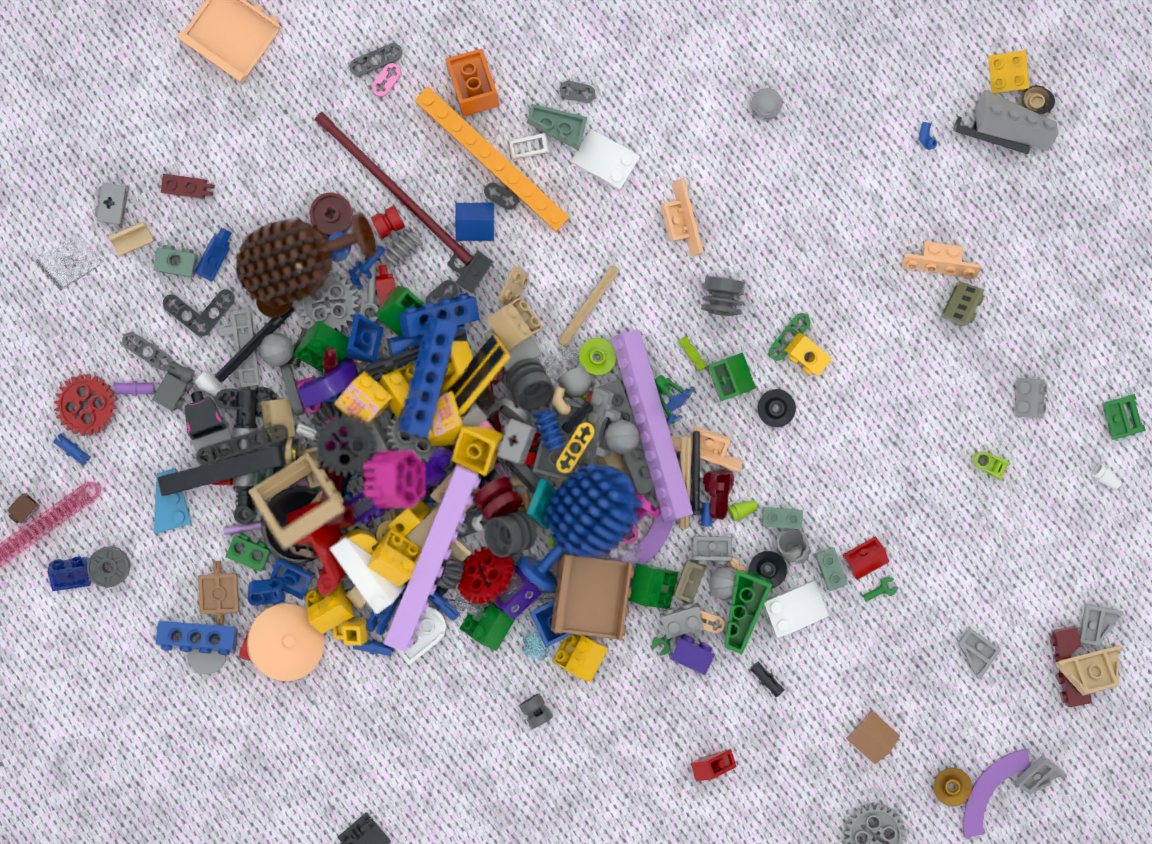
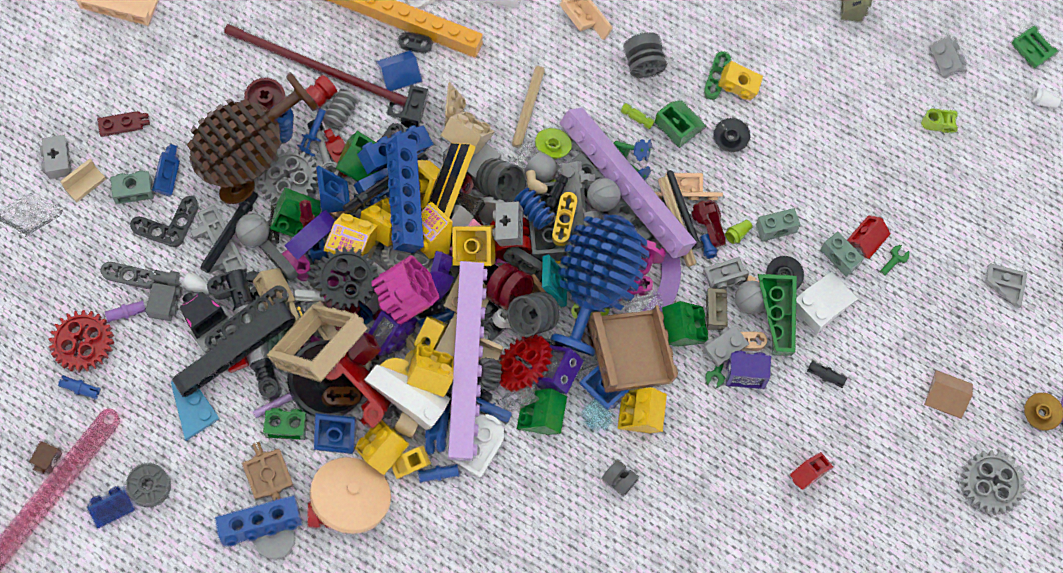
camera: 30 degrees left, 20 degrees down
(264, 592) = (315, 453): blue piece -> none
(793, 545) = (799, 243): light grey helmet -> none

